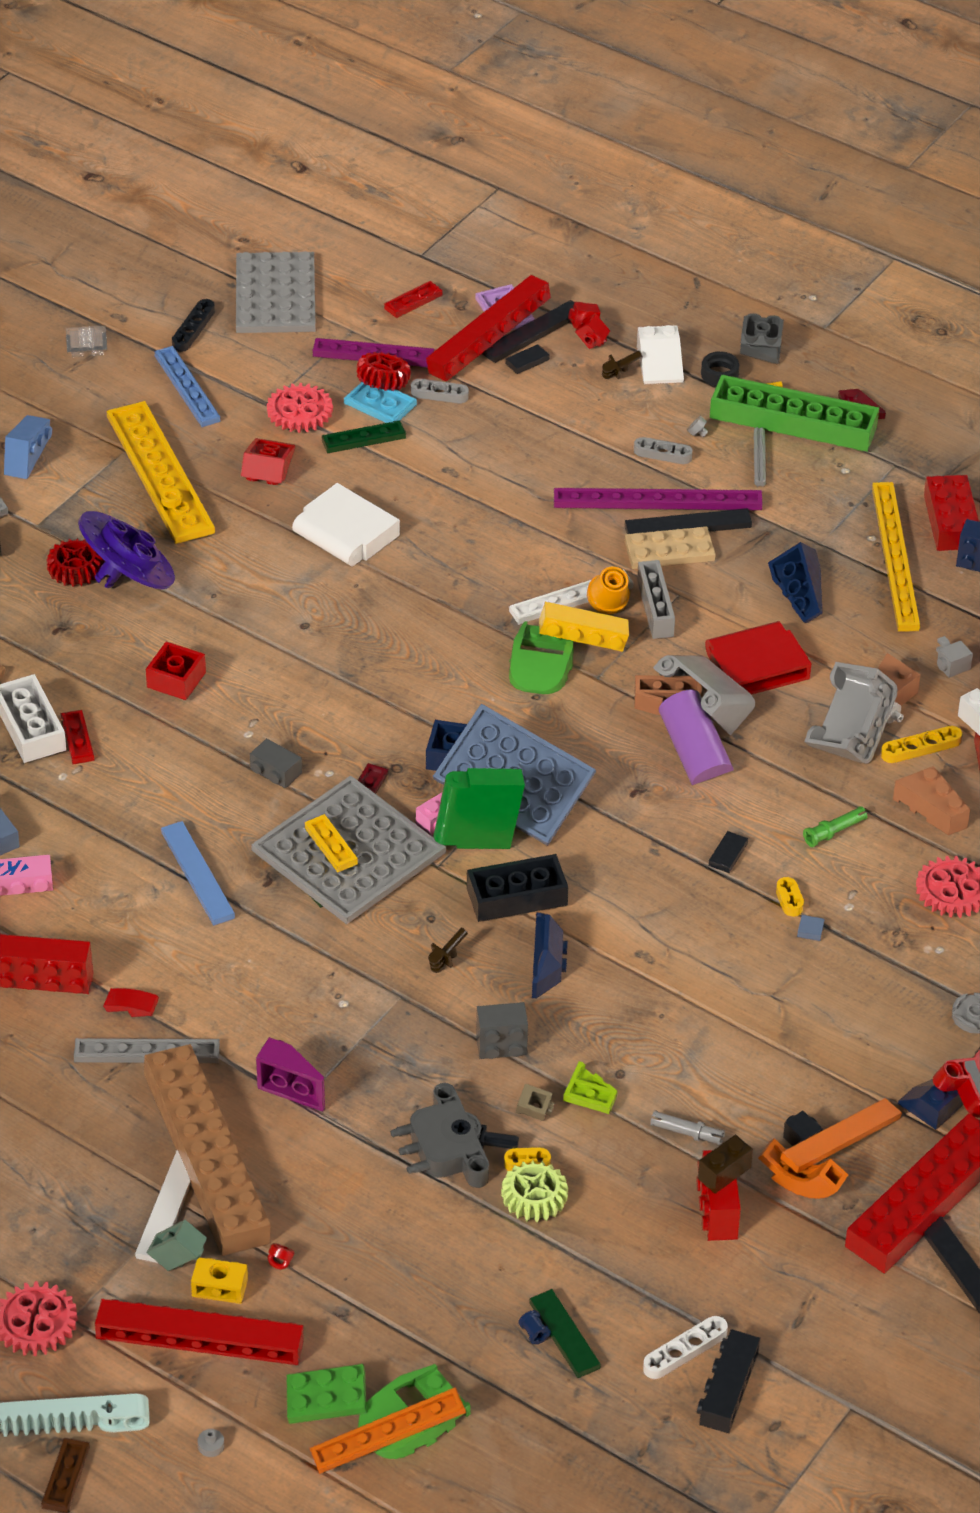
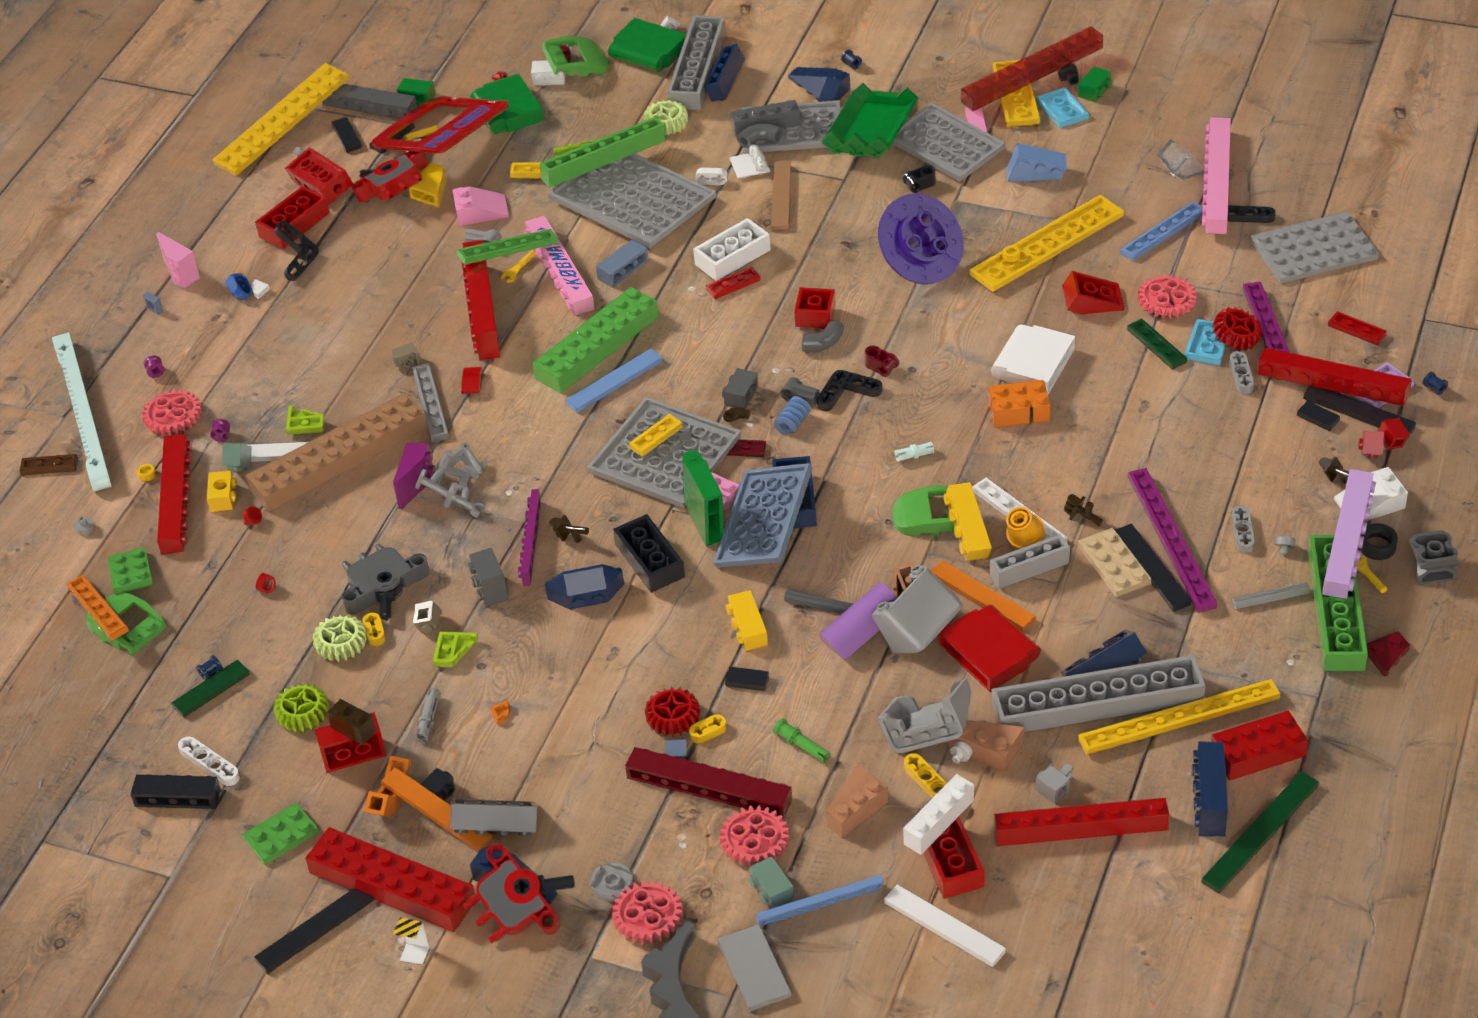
camera: 80 degrees right, 0 degrees up
(56, 1056) = (405, 357): none -> dark tan brick
(99, 1268) = (220, 430): none -> magenta wheel
(123, 871) = (595, 340): none -> bright green brick
(124, 1180) = (304, 421): none -> lime wing
(130, 319) = (1216, 176): none -> bright pink brick
(136, 1363) = (146, 472): none -> yellow tile
(227, 677) = (824, 339): none -> dark grey cylinder
(287, 642) = (880, 360): none -> dark red piece
(300, 682) = (869, 387): none -> black beam
(301, 1032) = (445, 466): none -> light grey piece
(302, 719) = (795, 388): none -> dark grey piece
(310, 778) = (735, 413): none -> dark brown arm
(344, 728) = (792, 415): none -> medium blue piece
(407, 1254) = (263, 582): none -> red tile
(415, 546) = (1012, 403): none -> orange piece
(434, 987) = (530, 533): none -> magenta plate
(445, 649) = (914, 451): none -> light aqua pin
(522, 272) = (1435, 383): none -> dark blue bush
(588, 550) = (1074, 506): none -> dark brown arm
(635, 1242) = (301, 707): none -> lime gear
(640, 771) = (816, 601): none -> dark grey axle
(648, 831) = (746, 620): none -> yellow brick
(687, 645) = (982, 595): none -> orange tile
(702, 1066) = (500, 712): none -> orange tile
(728, 370) = (1348, 534): none -> lavender brick
(760, 917) = (660, 715): none -> red gear
(820, 1291) = (280, 833): none -> bright green plate
(856, 591) = (1099, 694): none -> light grey brick
(867, 1085) = (493, 816): none -> slope
(868, 908) = (707, 781): none -> dark red brick

